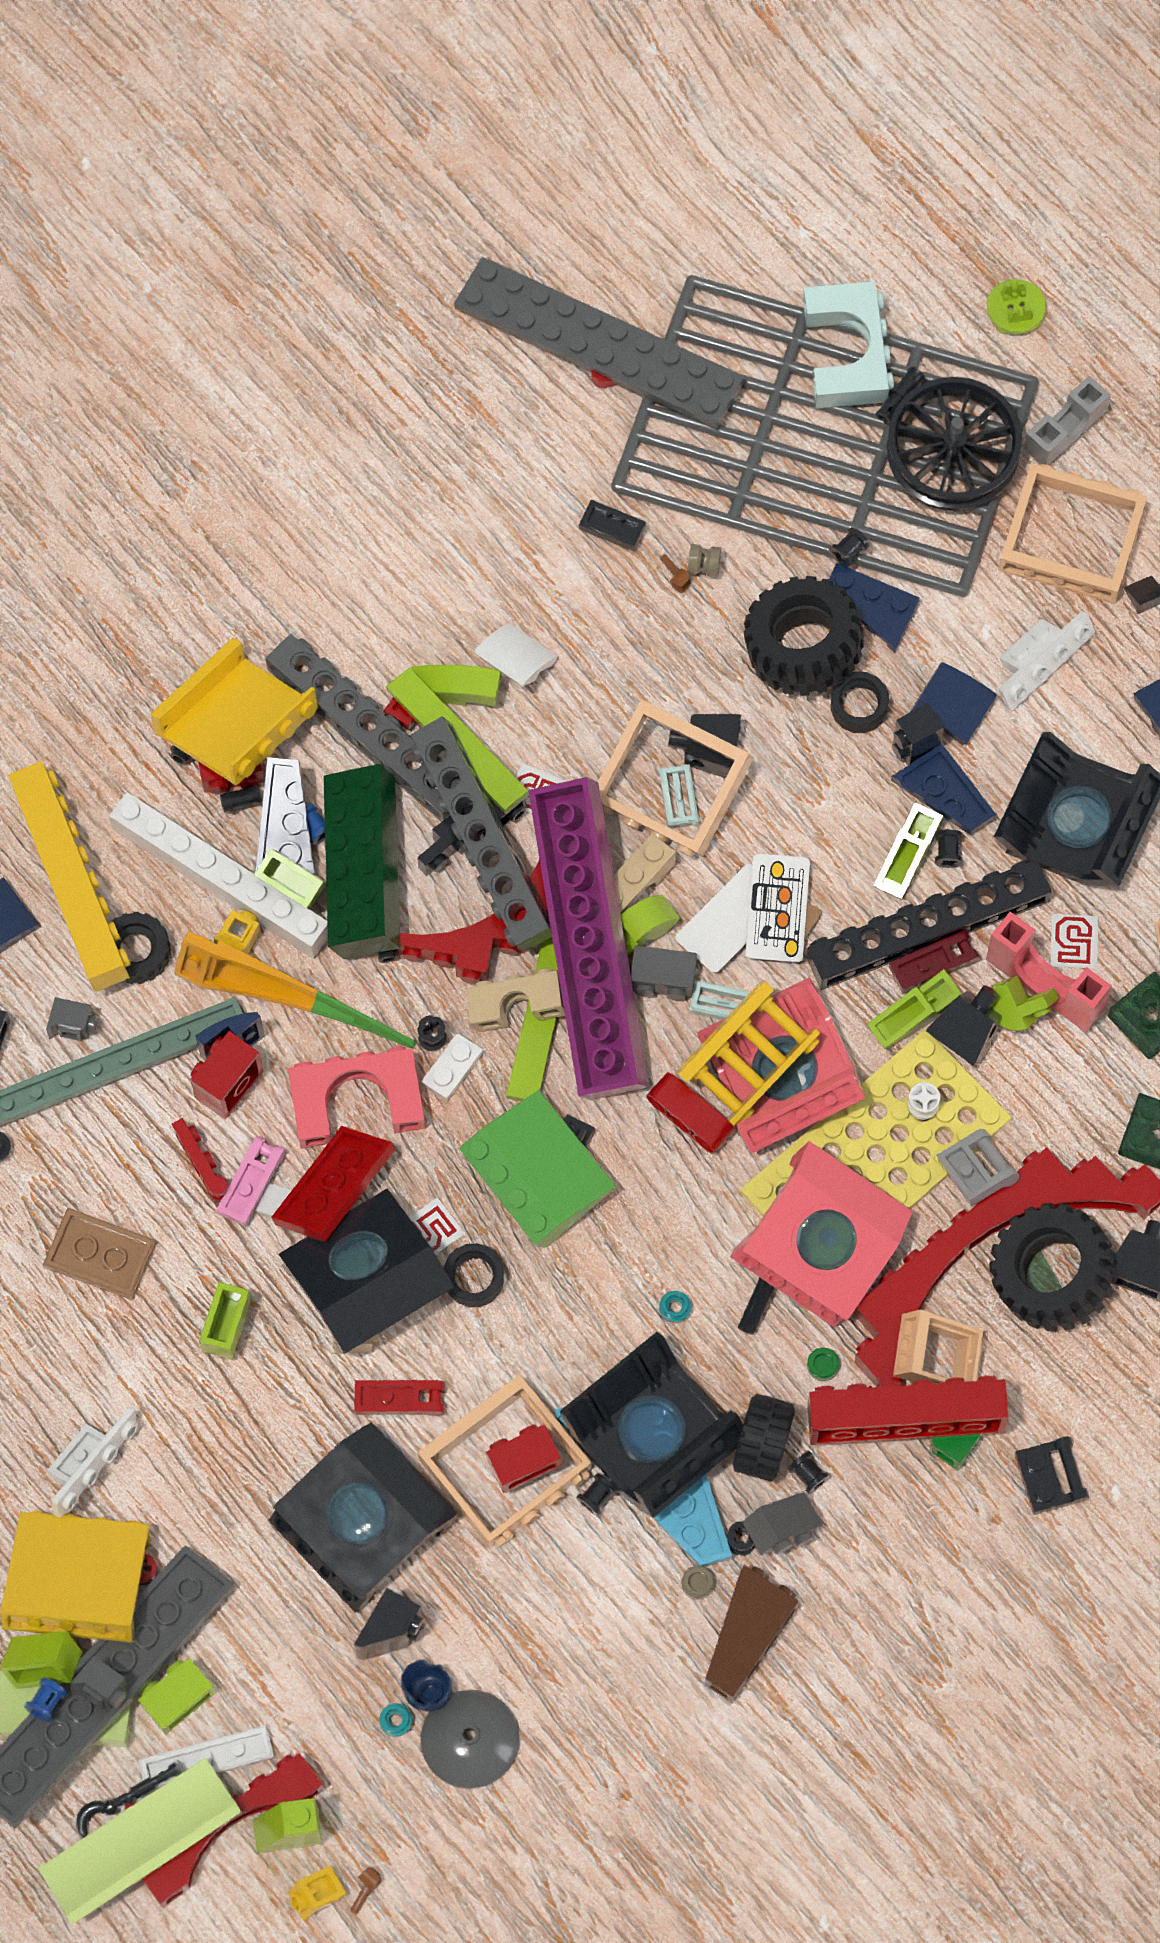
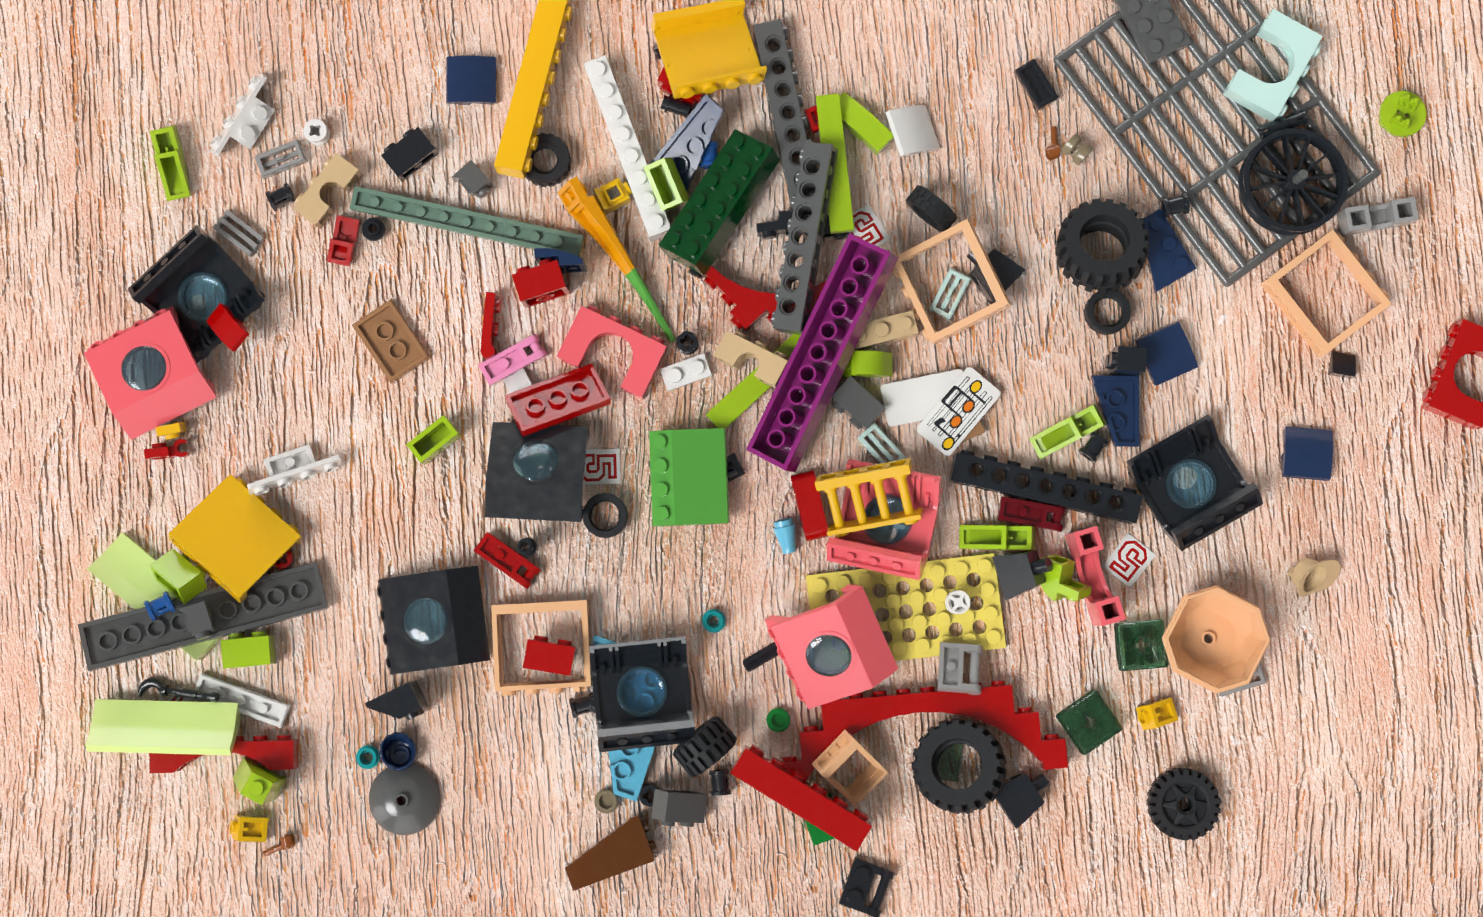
camera: 35 degrees right, 15 degrees up
(412, 1362) = (523, 542): none -> black pin
(594, 718) = (931, 208): none -> black tyre
(686, 1161) = (786, 534): none -> medium azure cone
(1040, 654) = (1245, 359): white bracket -> none

